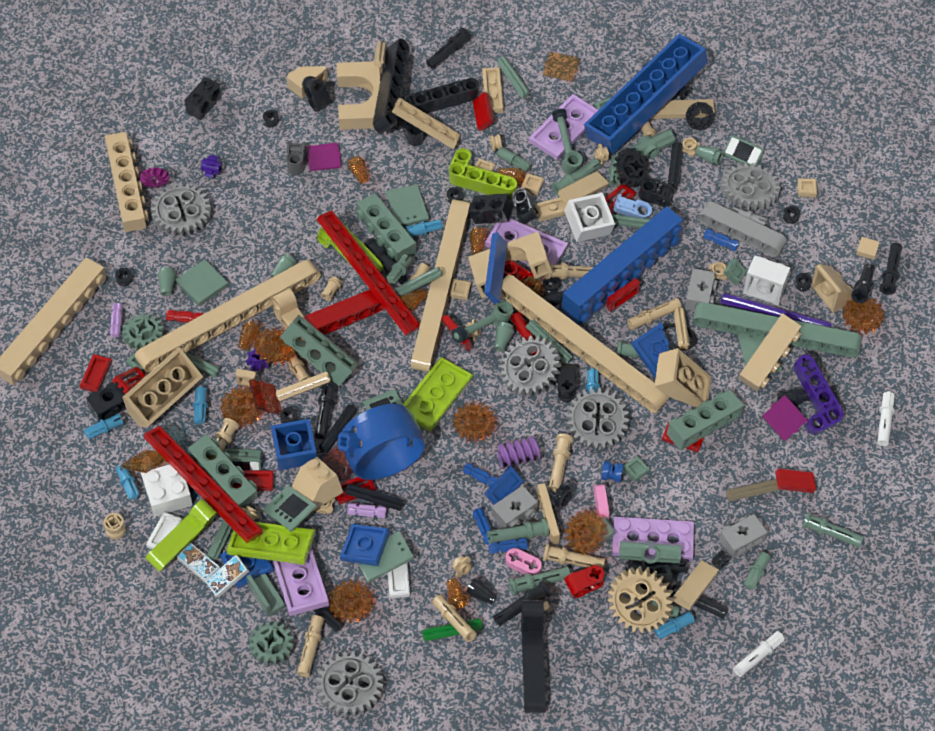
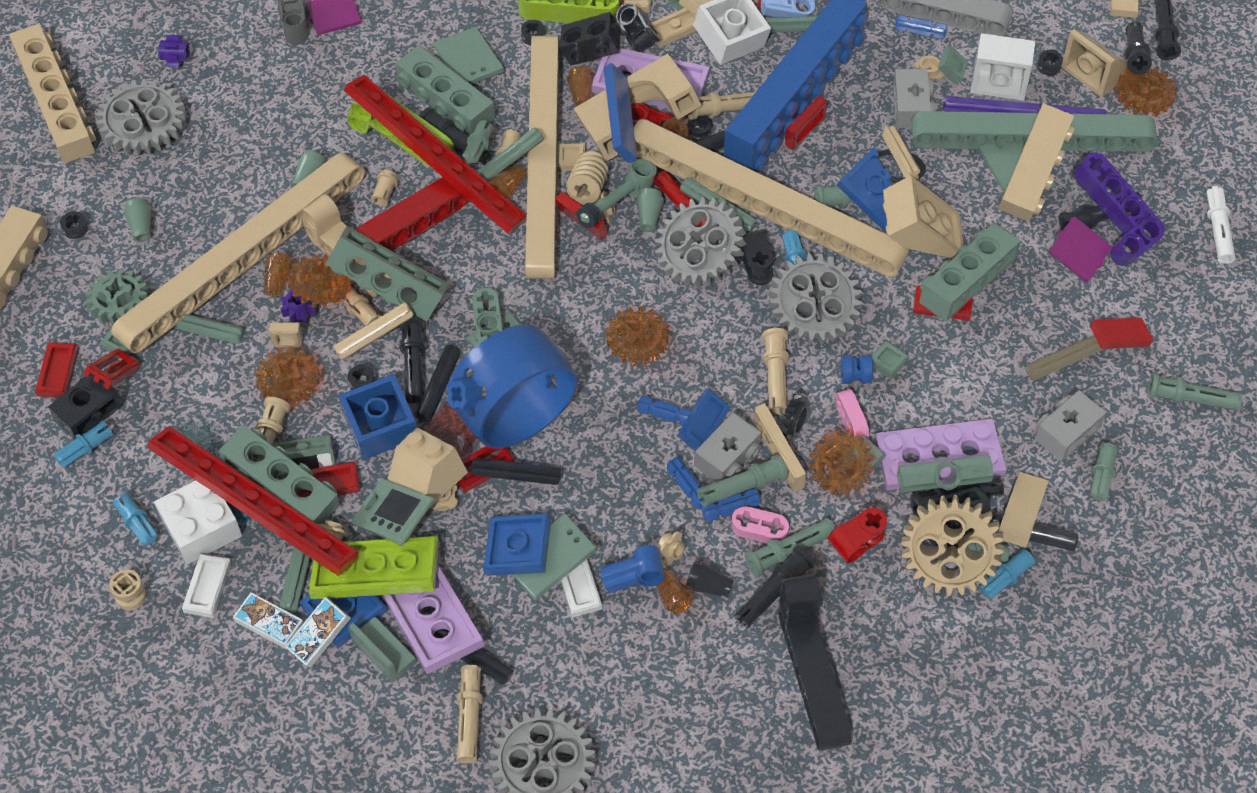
camera: 10 degrees left, 0 degrees up
(116, 320) = (74, 288): lavender axle -> none
(144, 461) = (155, 484): clear orange piece -> none
(161, 175) = (100, 71): magenta gear -> none
(161, 388) = (160, 371): tan slope -> none
(181, 316) = (170, 265): red axle -> none
(182, 535) = (235, 584): lime beam -> none
(200, 405) = (224, 386): dark azure axle -> none
(201, 282) = (192, 213): sand green tile -> none
(265, 397) = (320, 356): clear red piece -> none
(277, 649) = (394, 715): sand green gear -> none
(342, 595) = (505, 644): clear orange gear -> none
(358, 169) = (387, 19): clear orange cone -> none
(366, 510) = (508, 493): lavender axle -> none
(375, 389) = (483, 316): none -> sand green beam
(423, 228) = (501, 81): dark azure axle -> none
(437, 393) = (574, 303): lime tile -> none
(440, 575) = (642, 569): none -> blue piece
(448, 630) = (678, 646): green axle -> none
(450, 613) = (670, 622): tan pin -> none
(466, 307) = (587, 177): none -> tan piece
(518, 451) = (711, 365): medium lavender piece -> none
(564, 556) = (817, 504): tan pin -> none
(647, 316) = (847, 146): tan pin -> none
(721, 559) = (1048, 465): black bush -> none
(765, 648) = (1148, 583): white axle -> none

